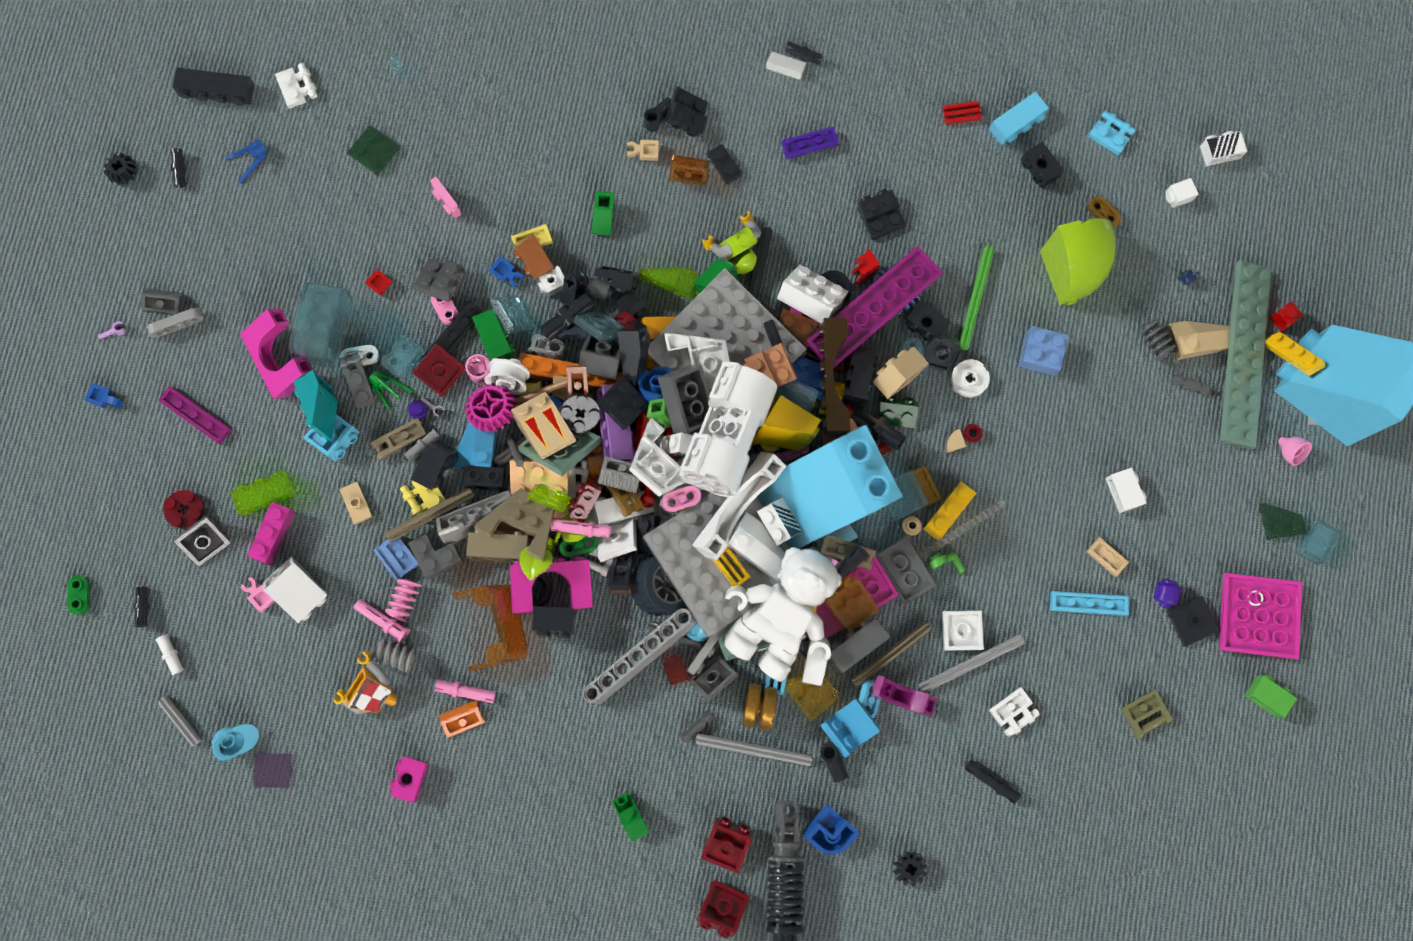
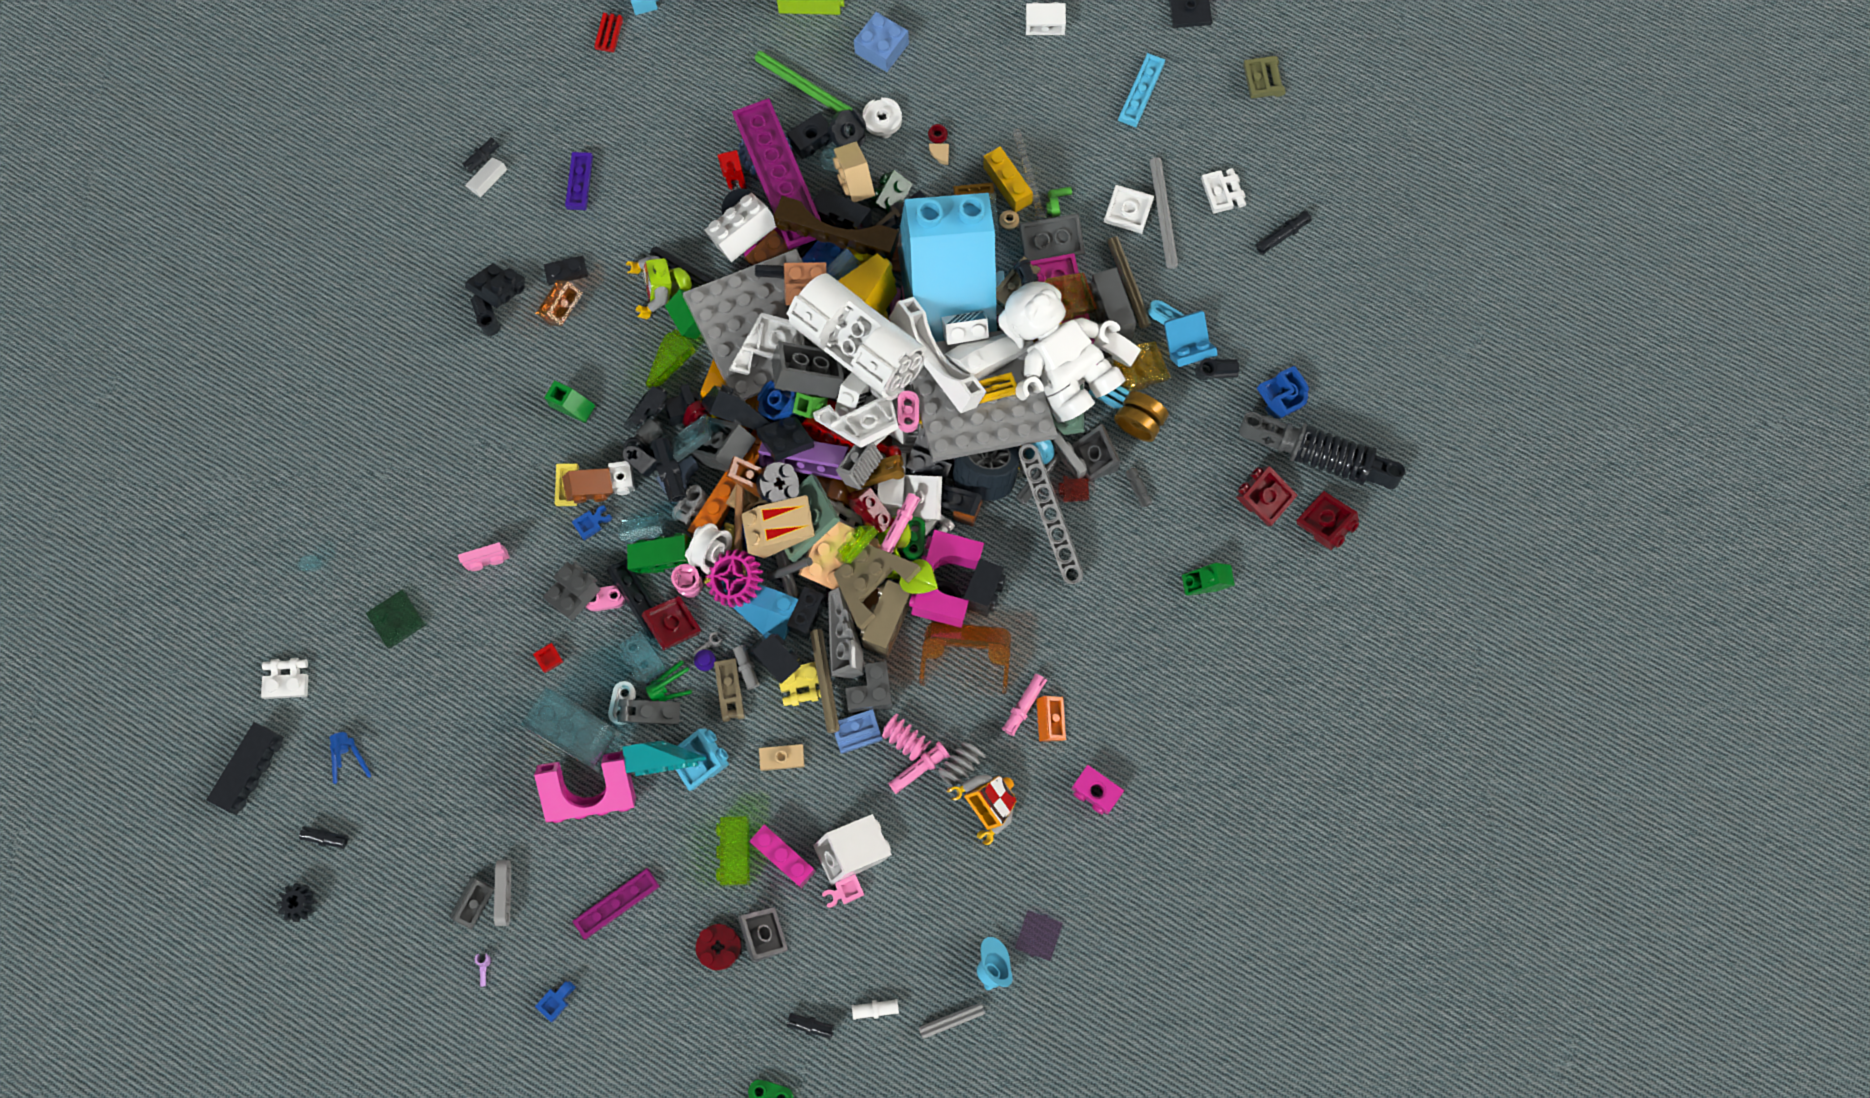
camera: 60 degrees left, 5 degrees down
(647, 149) = (517, 339): tan plate -> none
(753, 749) = (1179, 441): light grey axle -> none
(881, 214) = (681, 140): black plate -> none
(903, 697) = (1177, 281): magenta arch -> none
(913, 862) = (1335, 332): black gear -> none
(1107, 557) = (1103, 58): tan plate -> none
(1167, 593) = (1156, 18): dark purple head -> none

